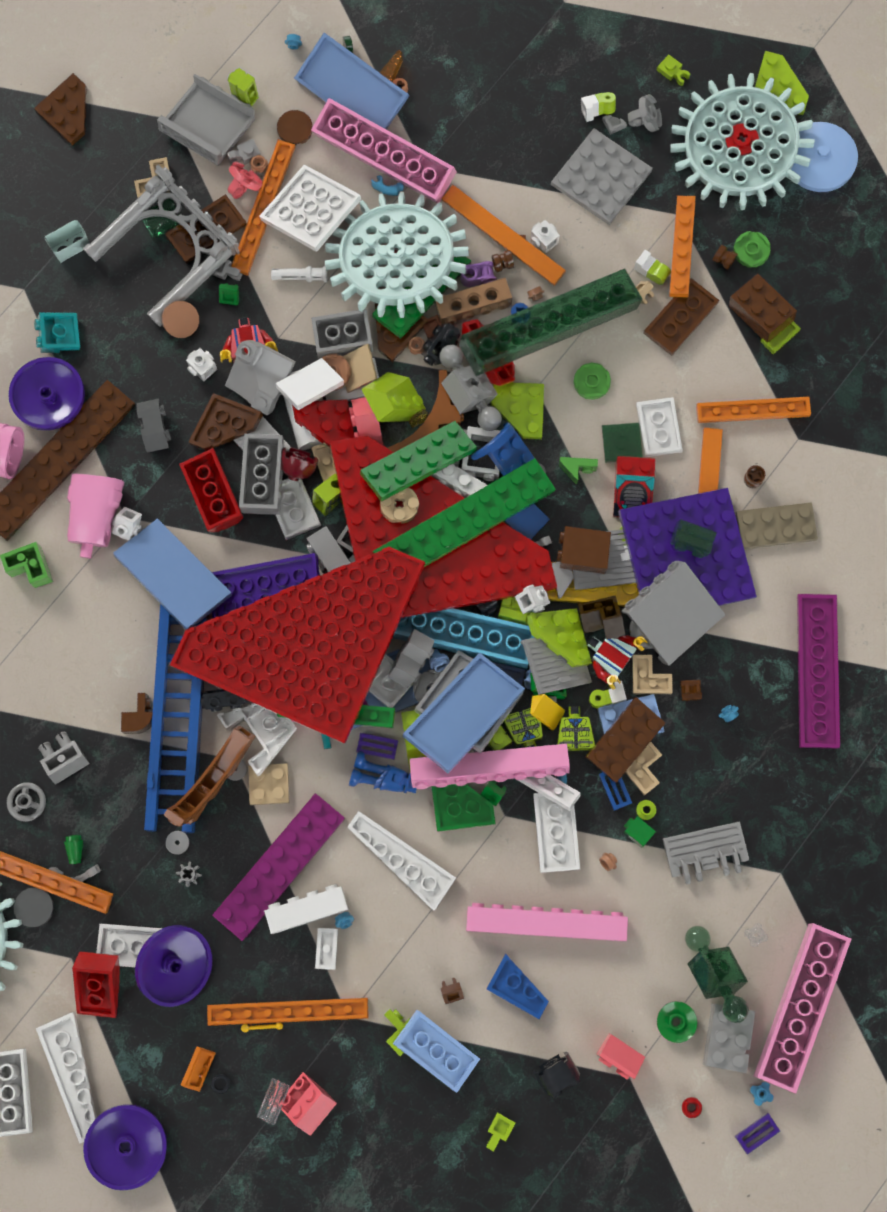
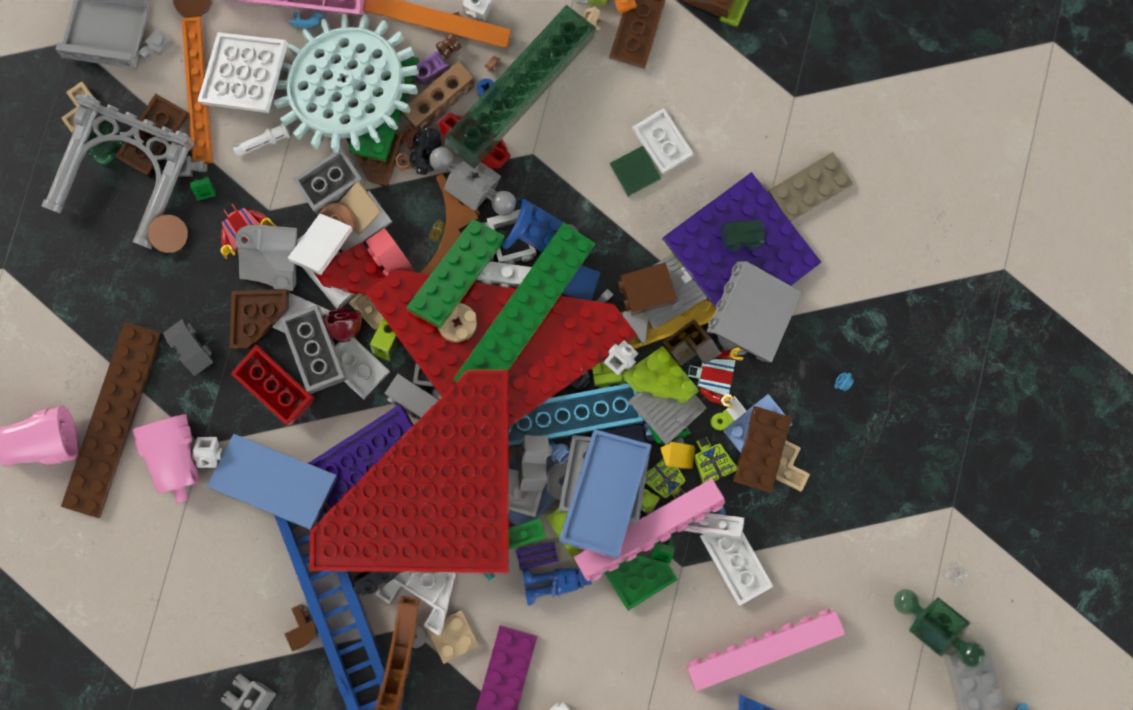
camera: 25 degrees left, 5 degrees up
(28, 560) = (132, 528): bright green brick -> none
(46, 393) = (71, 361): dark purple dish -> none
(57, 332) = (54, 297): teal plate -> none
(59, 237) = (14, 204): light aqua piece -> none
(201, 364) = (207, 268): white brick -> none
(242, 180) = (166, 73): coral tile -> none
(255, 161) = (170, 46): nougat plate -> none
(393, 398) = (404, 222): lime wedge -> none
(413, 868) = (622, 654): white wing -> none
(521, 407) = (528, 178): lime plate -> none
(573, 465) = (600, 213): bright green slope -> none
(592, 381) = (581, 124): bright green tile -> none
(608, 861) = (795, 567): nougat plate -> none
(621, 804) = (766, 503): blue tile -> none
(633, 482) = (663, 205): slope -> none
(638, 831) = (810, 527): green brick -> none
(645, 681) = (755, 385): tan plate -> none
(646, 816) = (801, 504): lime plate -> none
(687, 1024) = (930, 686): green dish -> none
(691, 690) = (799, 375): reddish brown tile -> none
(706, 847) = (877, 514): light grey hinge -> none
(710, 460) = (723, 153): orange tile -> none
(753, 409) = (742, 87): orange plate -> none
(757, 474) = (771, 146): reddish brown wheel -> none
(802, 1007) = (1027, 623): bright pink brick -> none
(818, 671) = (906, 306): magenta plate -> none

